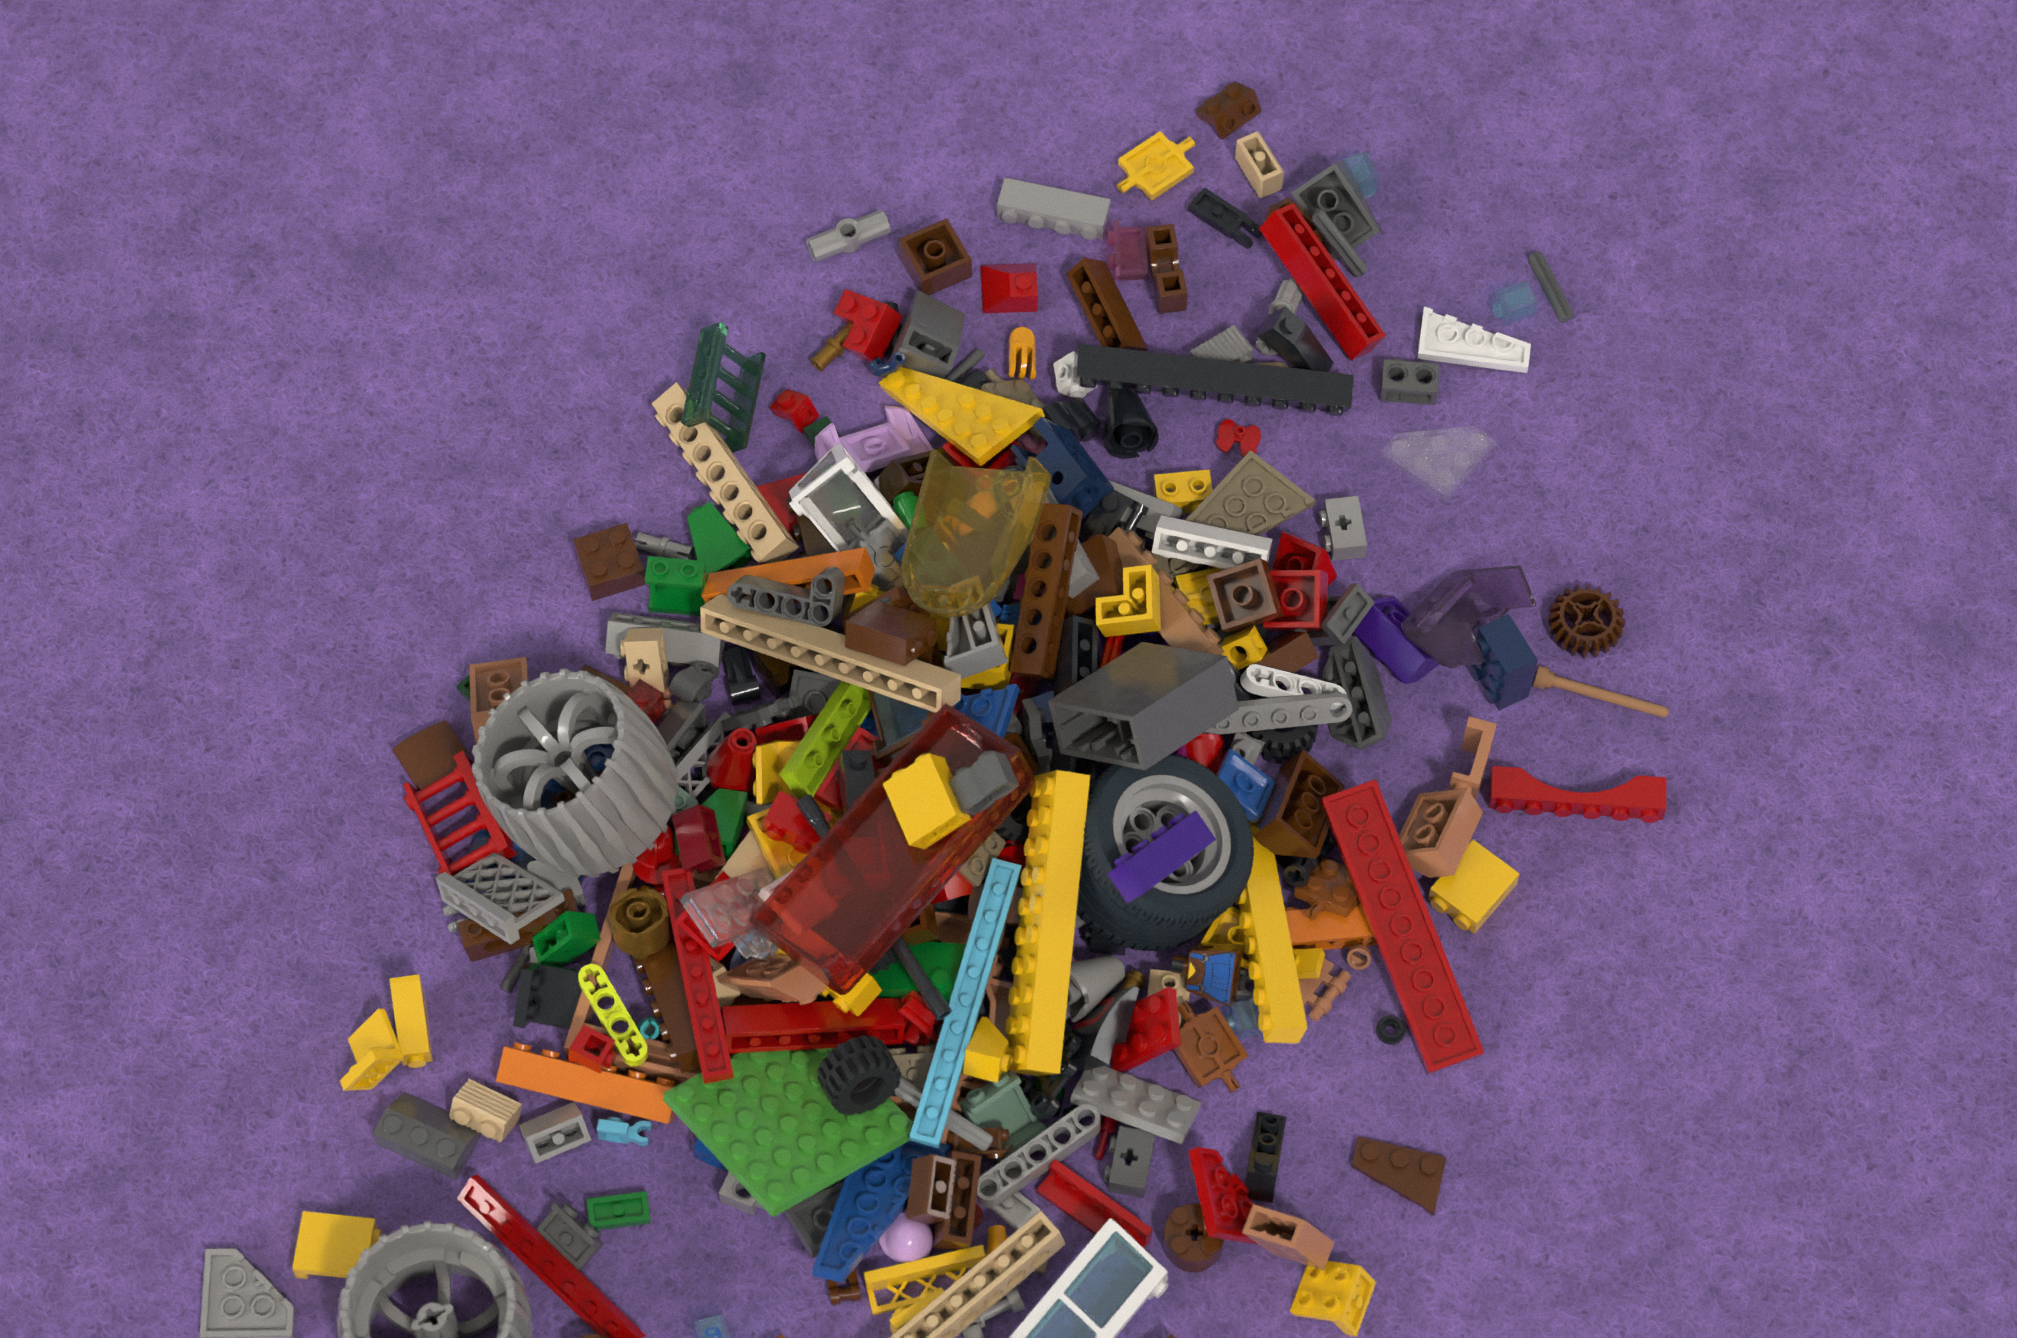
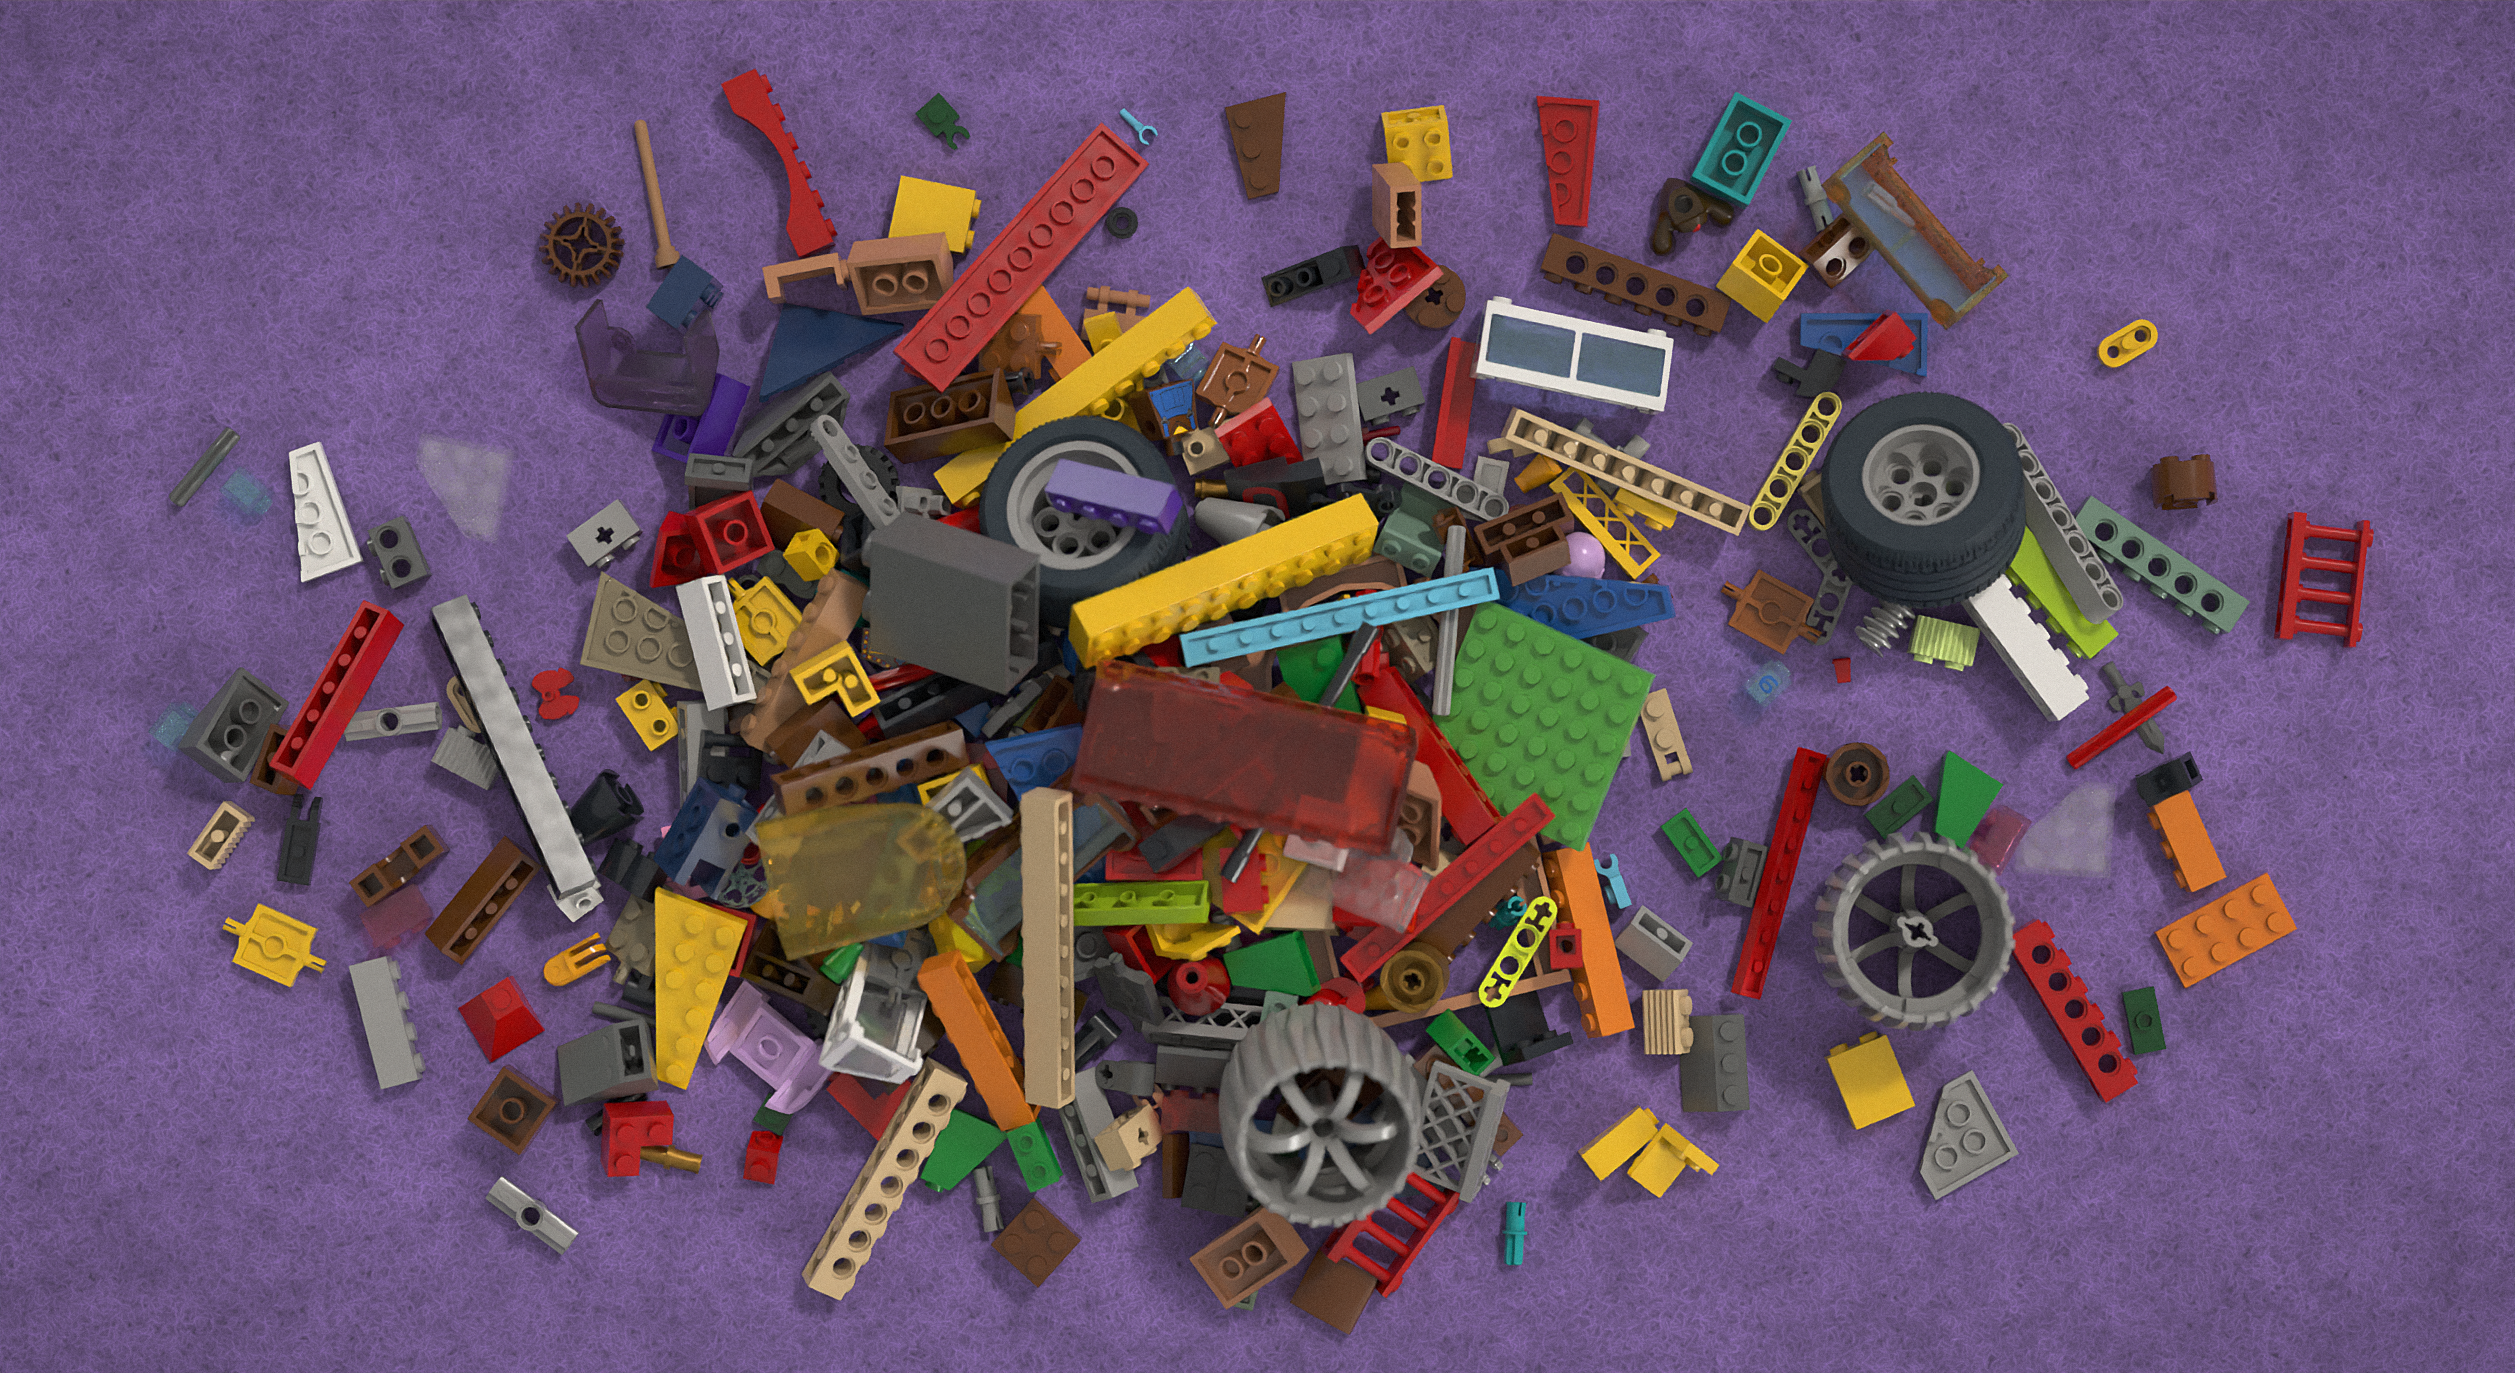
camera: 120 degrees left, 25 degrees up
(391, 911) = (1514, 1233): none -> teal axle
(698, 839) = (1309, 964): dark red hinge -> none
(703, 387) = (794, 1256): fence -> none
(721, 1237) = (1664, 735): none -> tan plate
(785, 594) = (1009, 1022): dark grey beam -> none
(859, 1075) = (1473, 672): black tyre -> none
(890, 633) = (1005, 892): reddish brown brick -> none
(891, 366) = (669, 1086): dark blue arm -> none
(925, 801) = (1184, 748): yellow brick -> none
(983, 782) = (1147, 696): dark grey brick -> none
(987, 1053) = (1373, 573): yellow slope -> none
(1229, 109) = (162, 905): reddish brown bracket -> none
(1244, 595) = (761, 577): reddish brown brick -> none
(1247, 783) = (957, 480): blue tile -> none
(1261, 681) = (825, 485): white beam -> none
(1294, 341) = (424, 686): black slope -> none
(1339, 243) = (278, 702): dark grey axle -> none
(1355, 960) = (1064, 288): nougat hinge -> none
(1415, 745) = (816, 342): none -> dark blue tile
(1466, 1083) = (1137, 126): none -> medium azure hand
(1553, 934) = (940, 118): none -> dark green plate

